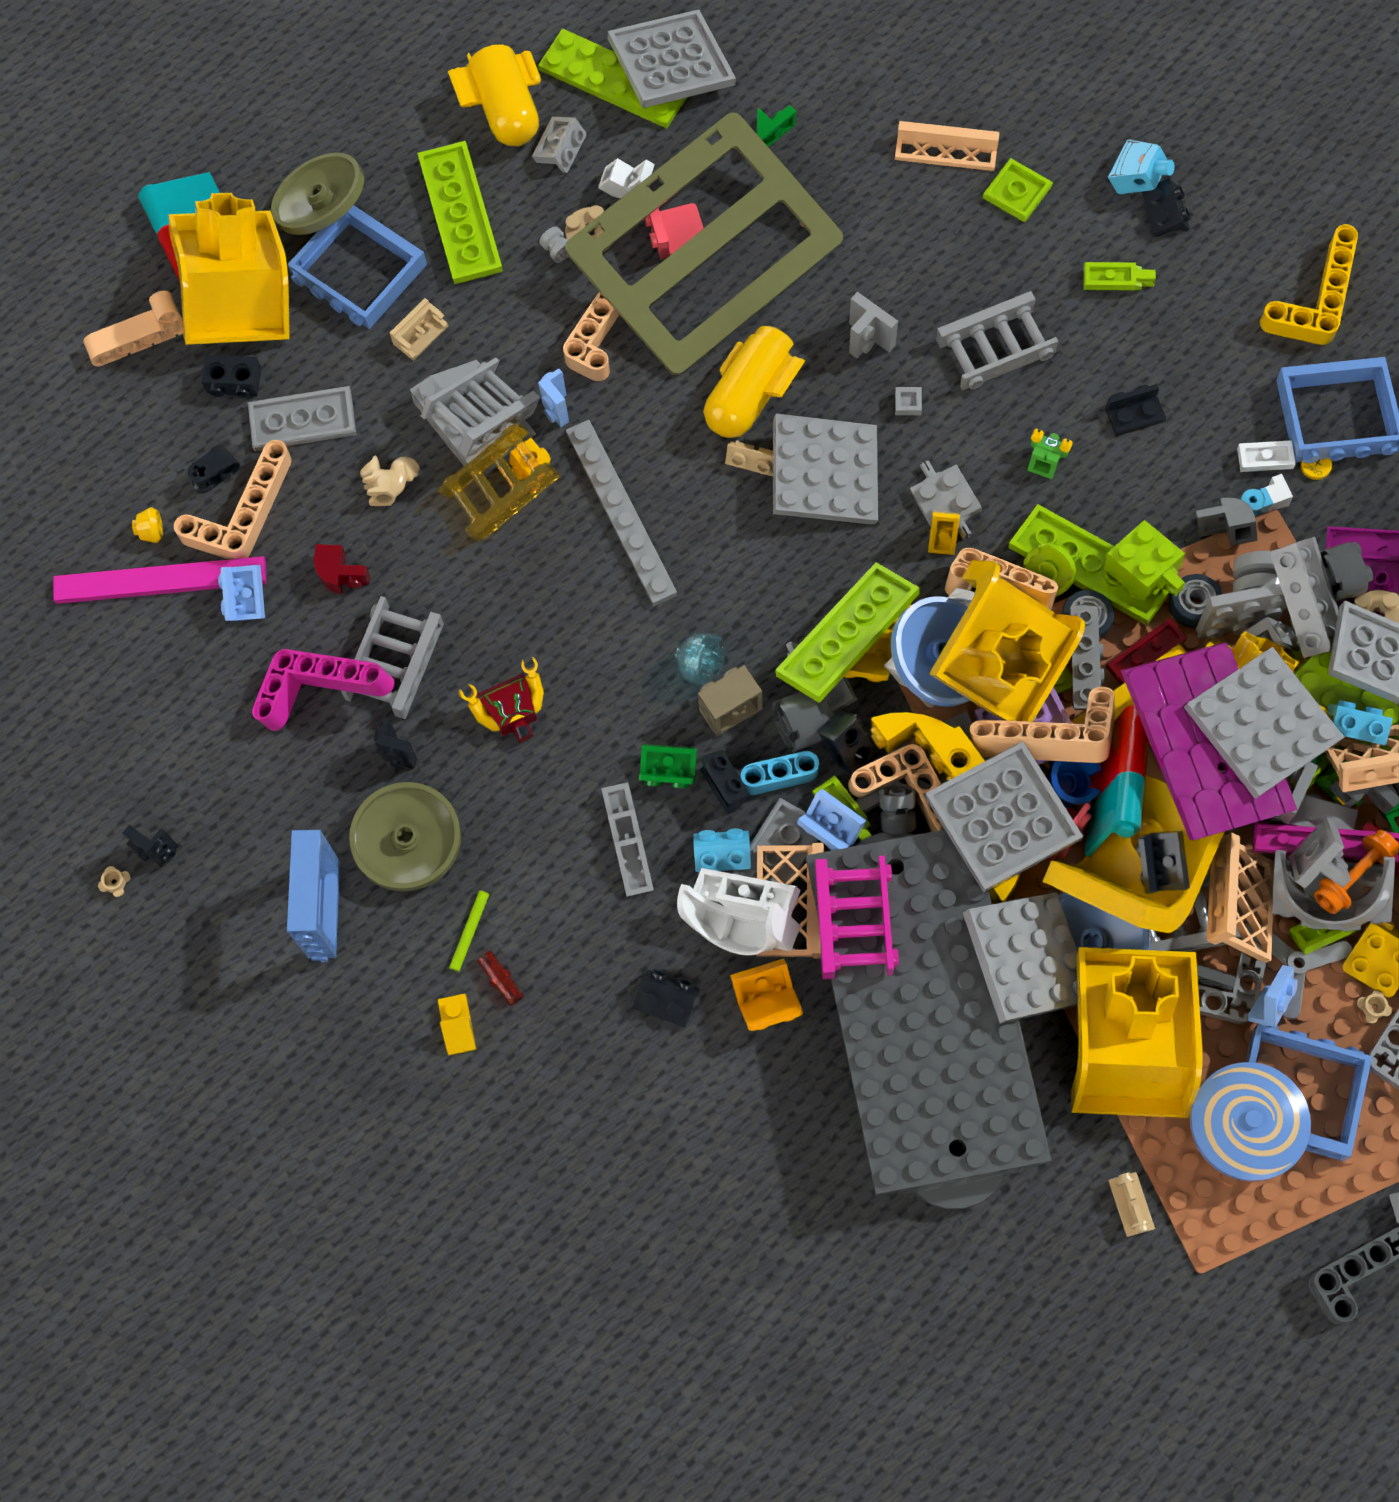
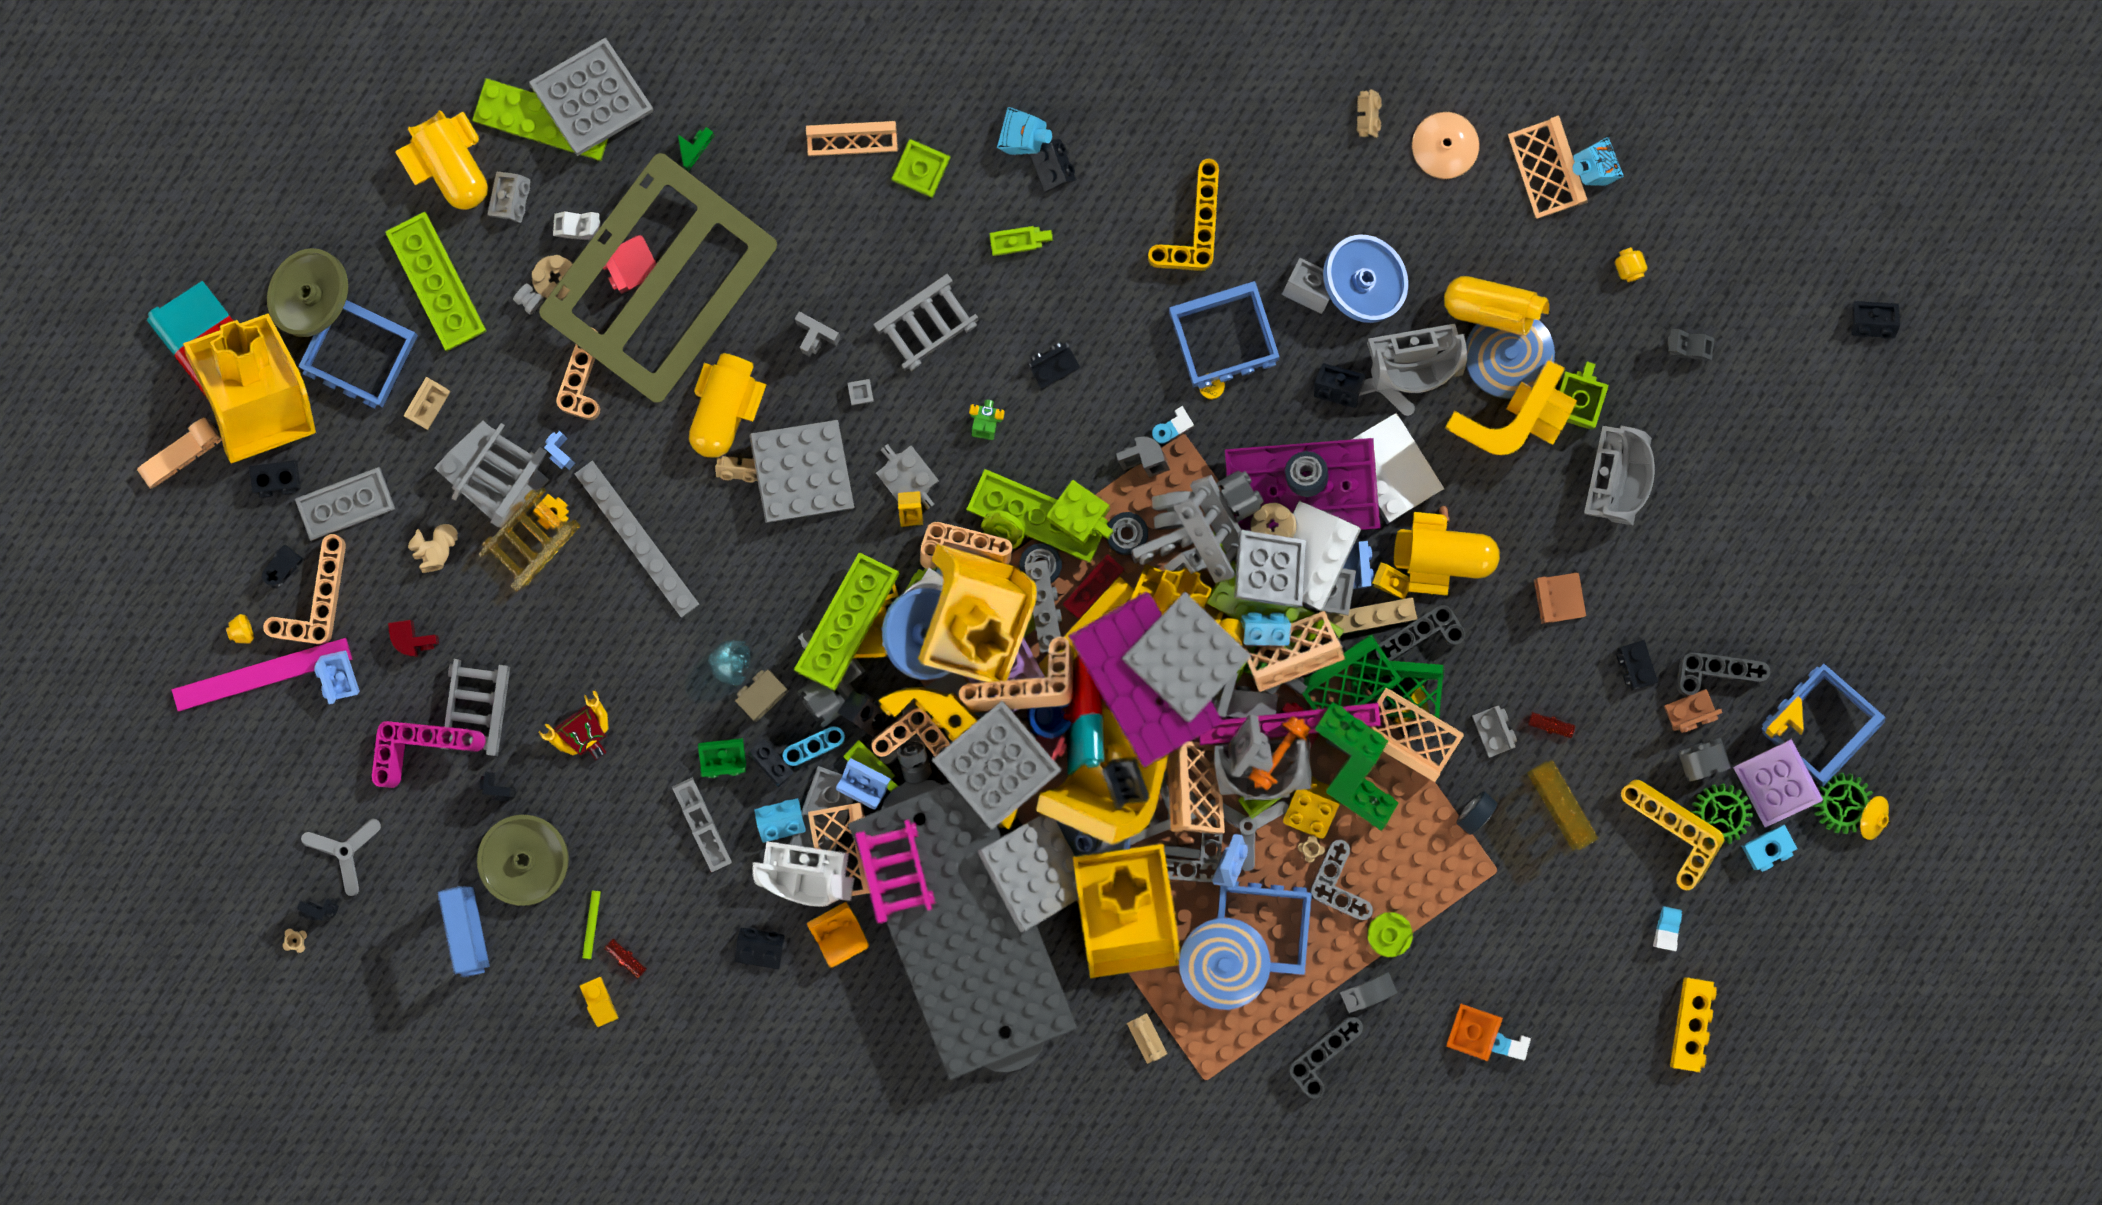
camera: 20 degrees left, 15 degrees up
(199, 802) = (334, 848): none -> light grey piece
(1266, 456) = (1168, 387): white plate -> none

